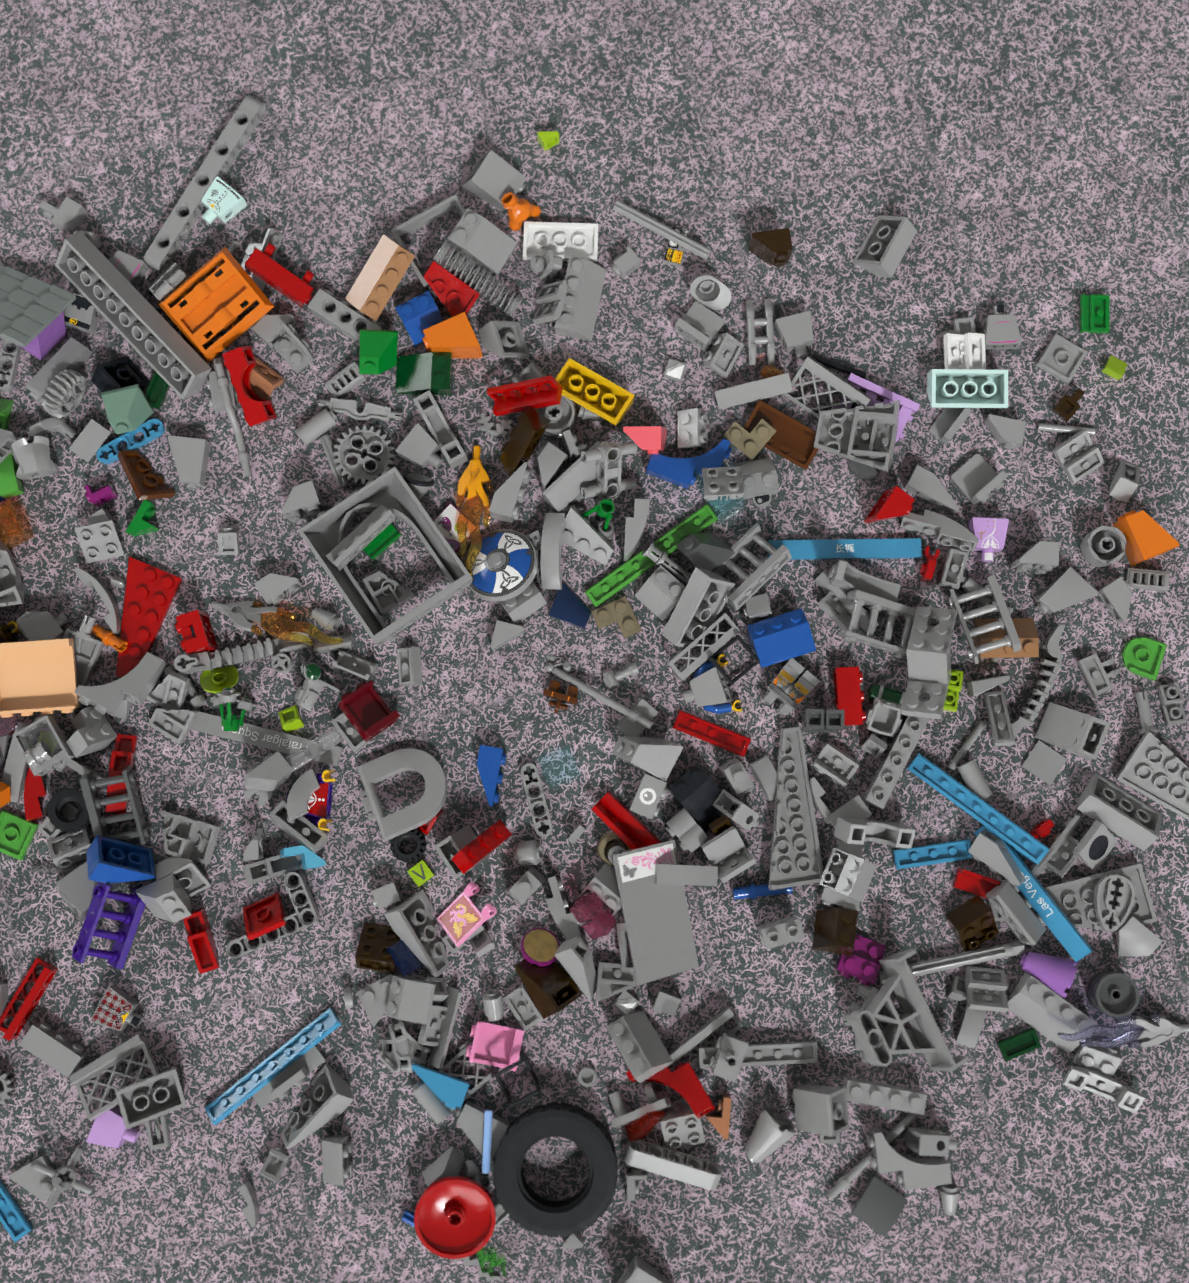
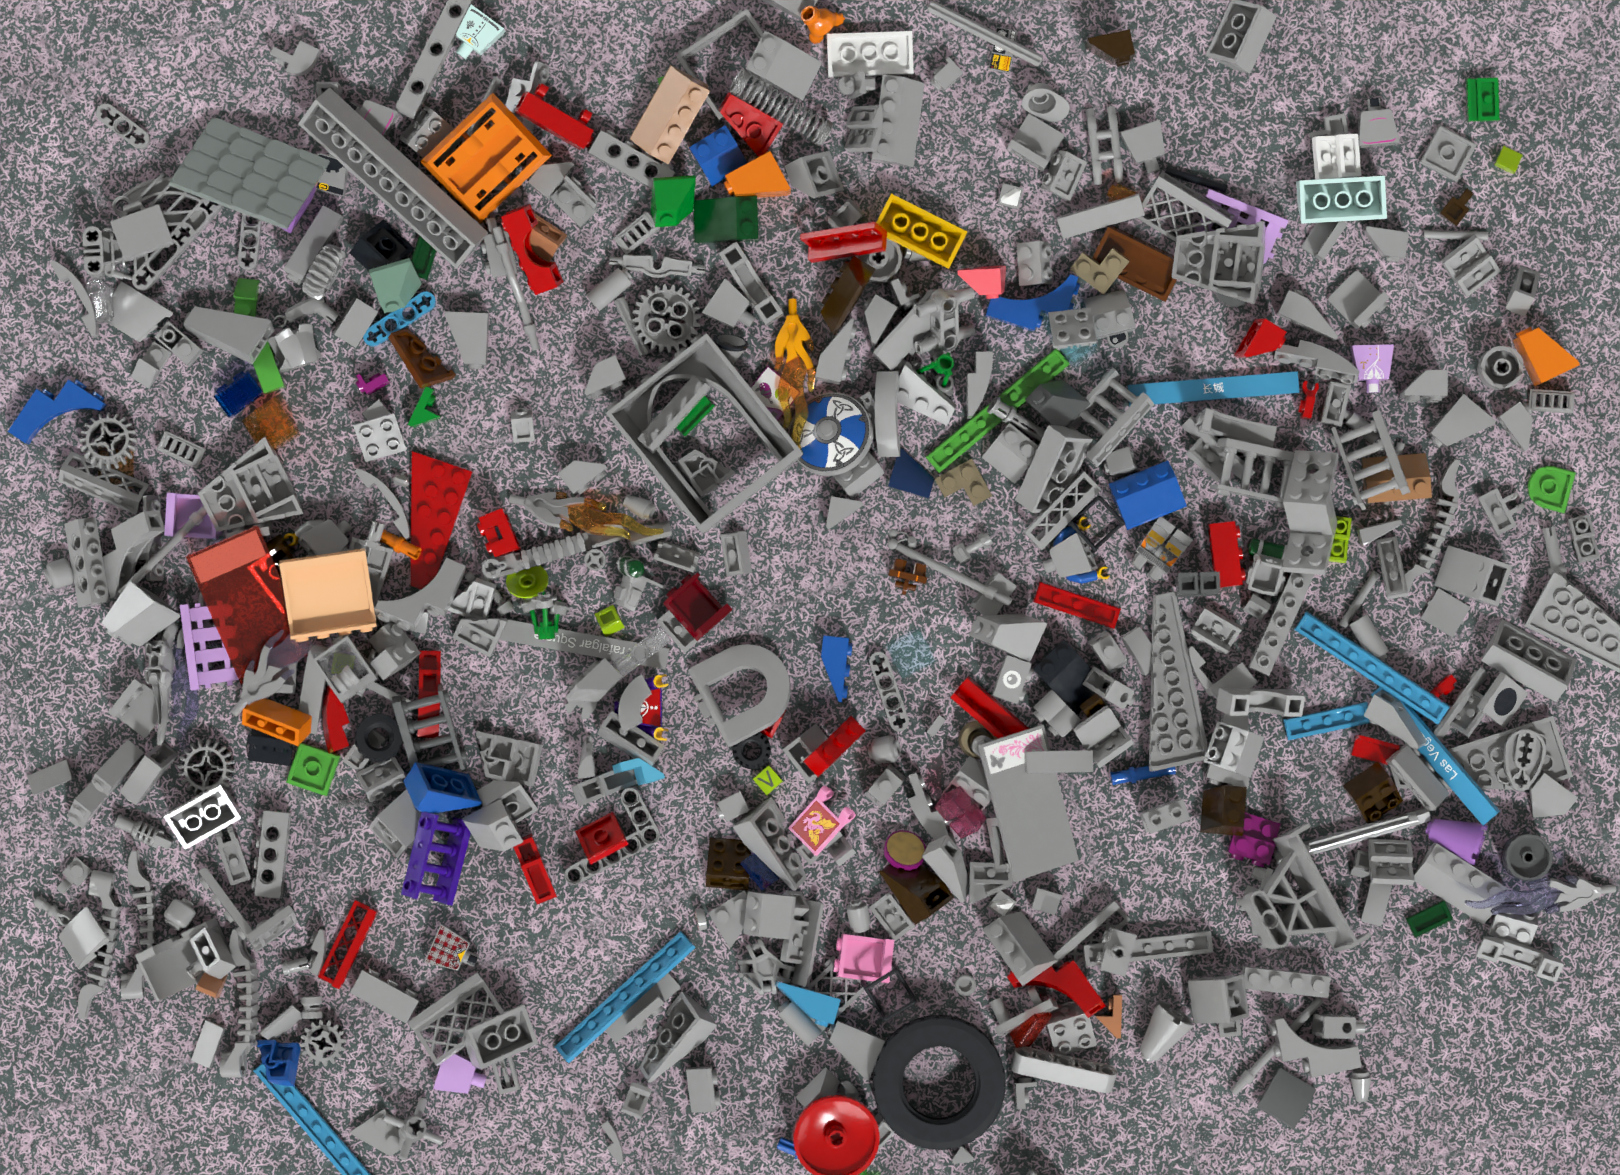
camera: 10 degrees left, 5 degrees up
(169, 285) = (431, 138): light grey axle -> none
(487, 1141) = (863, 1049): light blue bar -> none
(500, 430) = (802, 276): light grey animal -> none

